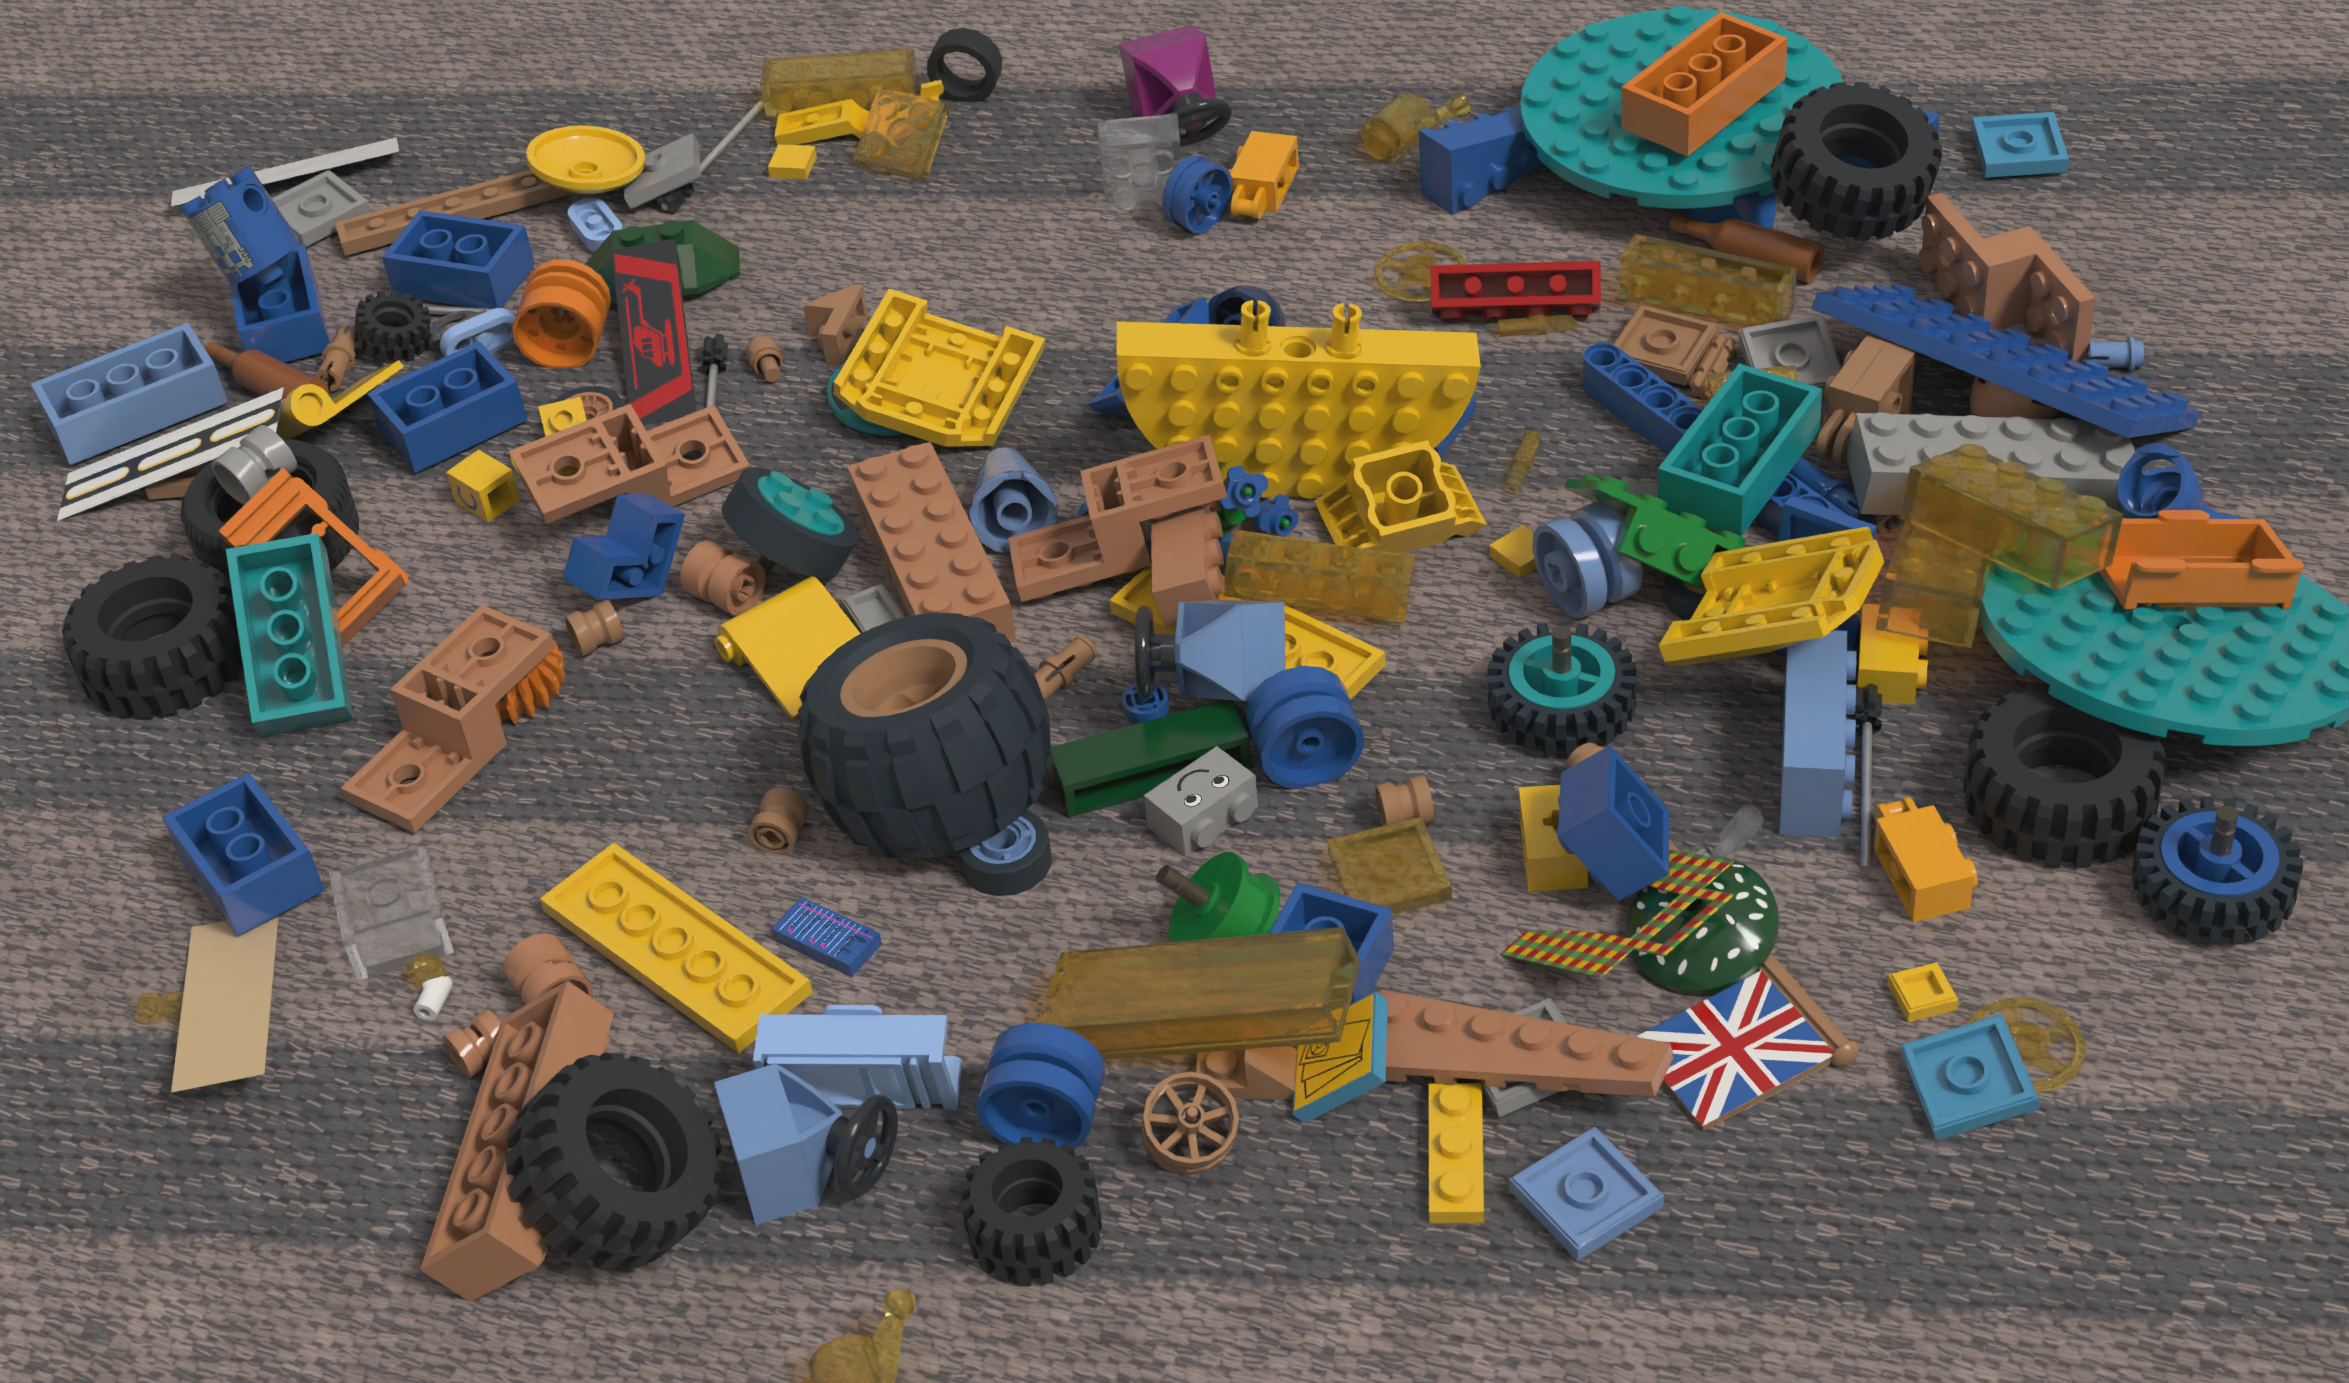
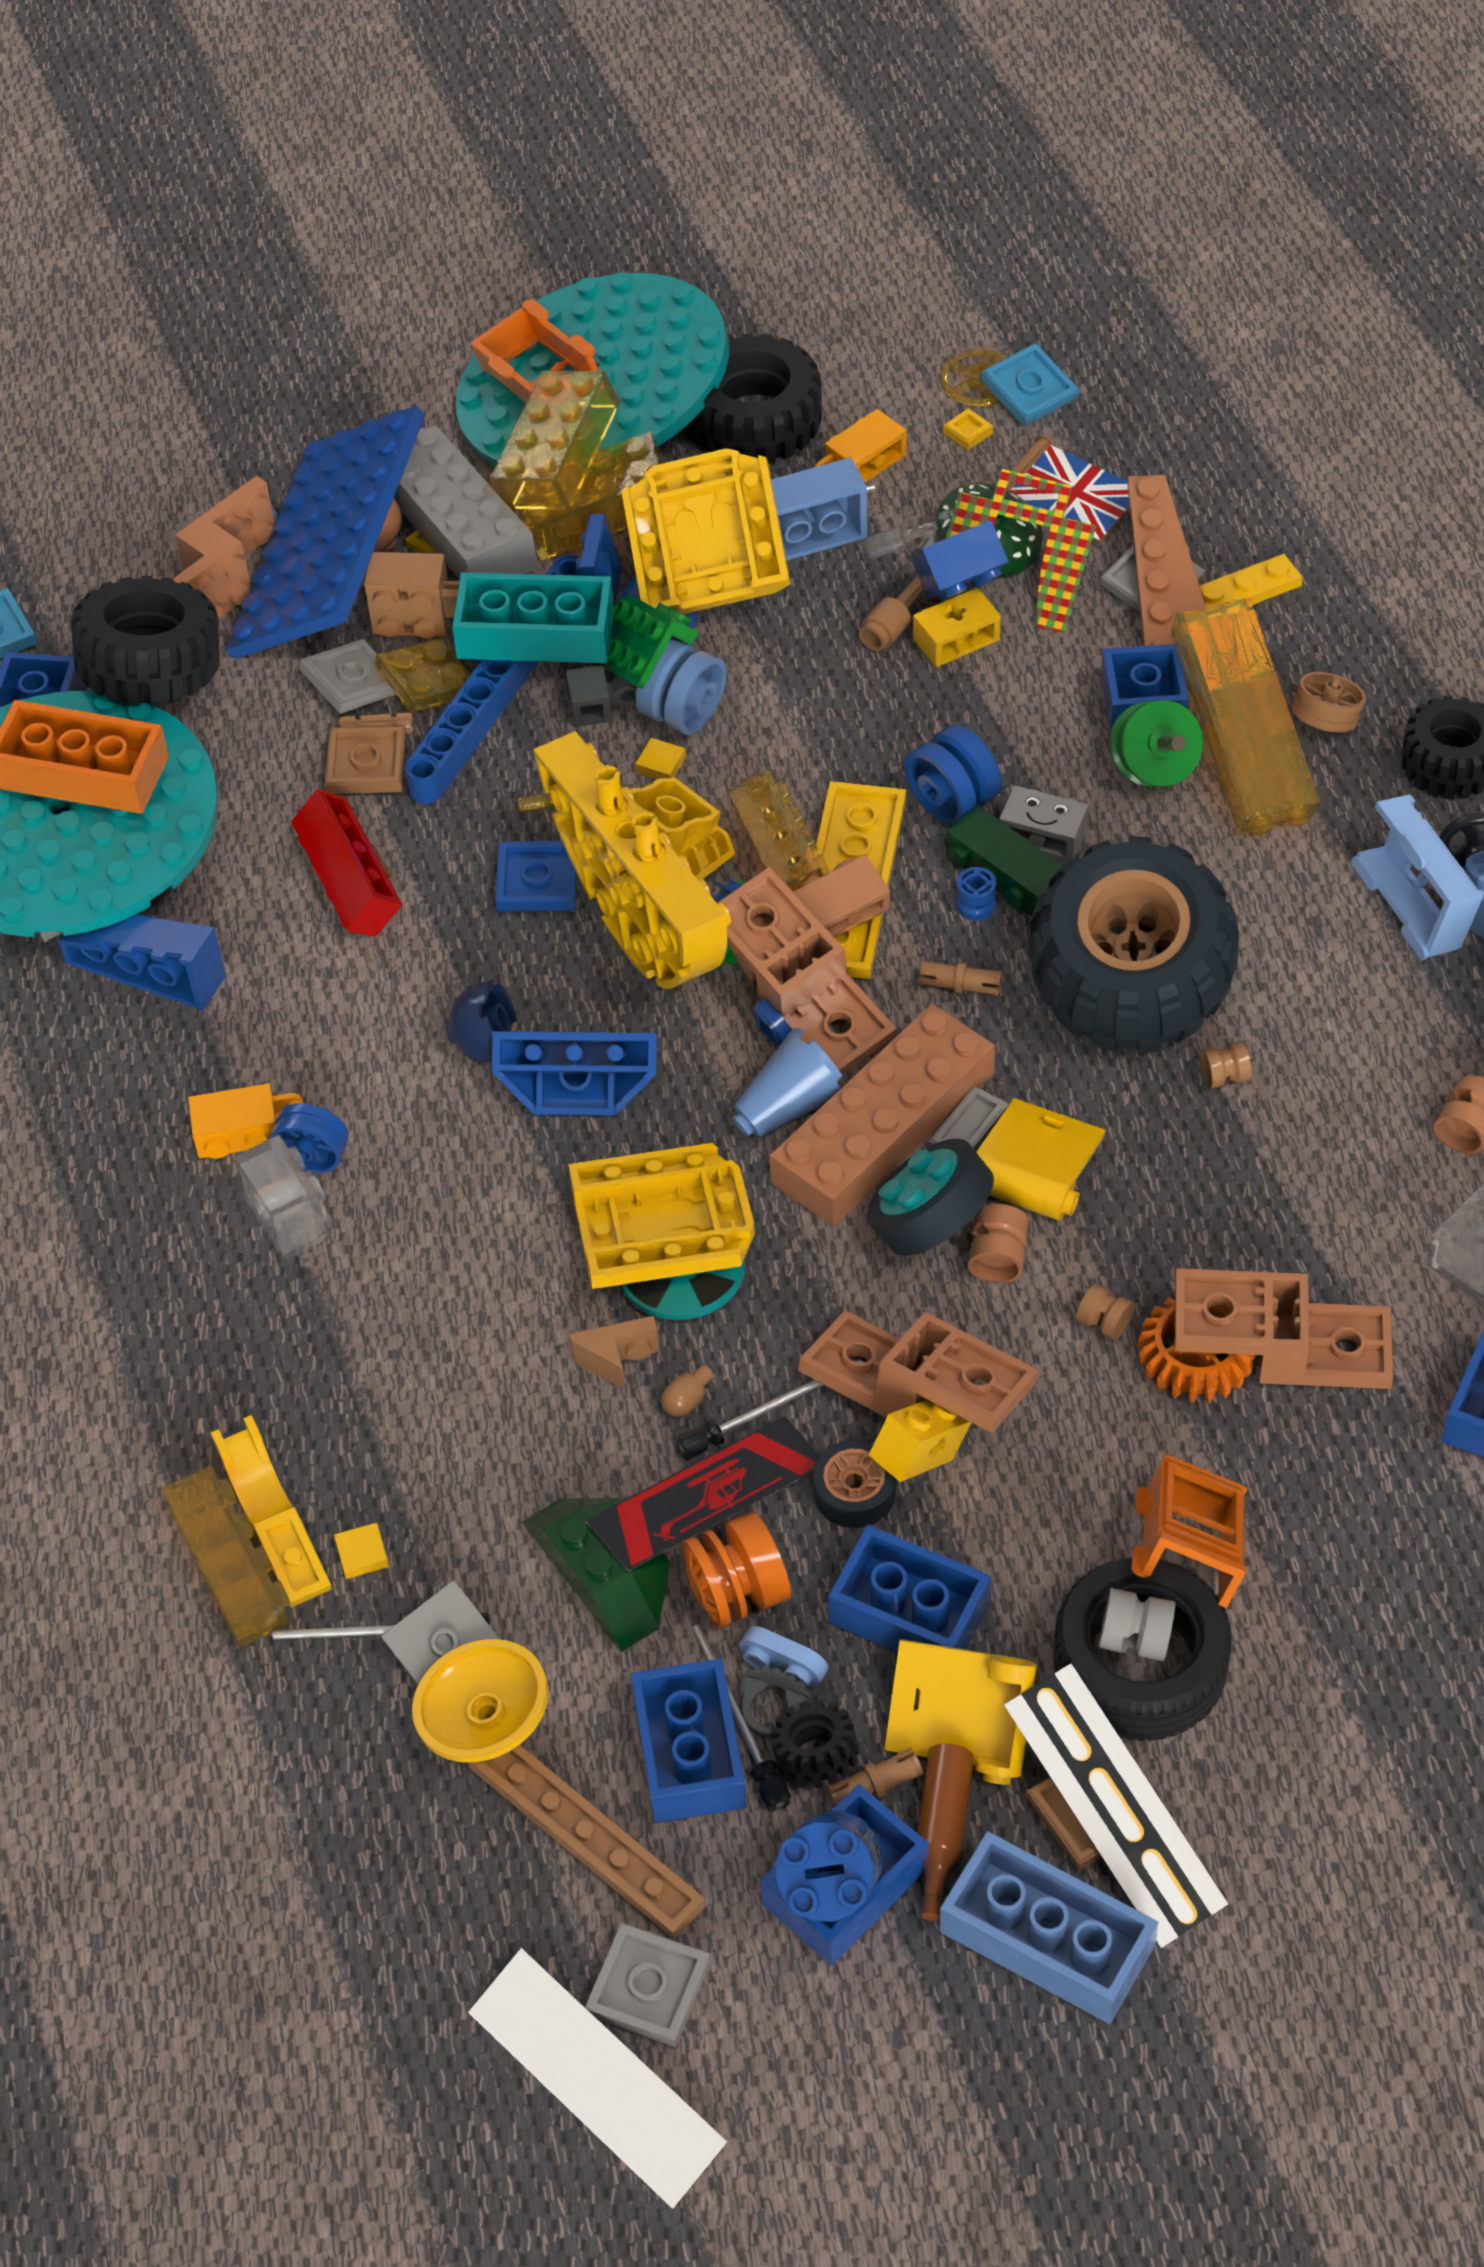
camera: 120 degrees left, 10 degrees up
(113, 630) = (1327, 1686): black tyre -> none
(289, 635) = (1292, 1480): teal brick -> none
(483, 486) = (987, 1512): yellow brick -> none
(592, 221) = (558, 1669): light blue plate -> none
(633, 554) = (1026, 1309): blue brick -> none
(675, 946) = (1378, 1070): yellow plate -> none
(826, 936) = (1302, 989): blue tile -> none
(902, 133) = (297, 1444): clear yellow plate -> none
(974, 44) = (161, 1441): black tyre -> none
(1041, 1085) = (1367, 769): blue wheel -> none
(1174, 76) = (147, 1221): magenta piece -> none
(1217, 648) = (925, 837): medium blue piece -> none
(1391, 866) = (1037, 703): clear yellow plate -> none
(1396, 126) = (125, 1036): clear yellow piece -> none
(1404, 801) = (971, 713): medium nougat wheel -> none
(1415, 269) = (323, 961): clear yellow wheel -> none
(1561, 687) = (813, 668): wheel -> none
(1586, 1193) = (1235, 515): medium blue plate -> none
(1706, 282) = (287, 743): clear yellow brick -> none
(1757, 243) = (213, 722): dark orange piece -> none
(2171, 488) = (468, 396): blue piece -> none
(2217, 870) = (799, 311): wheel -> none

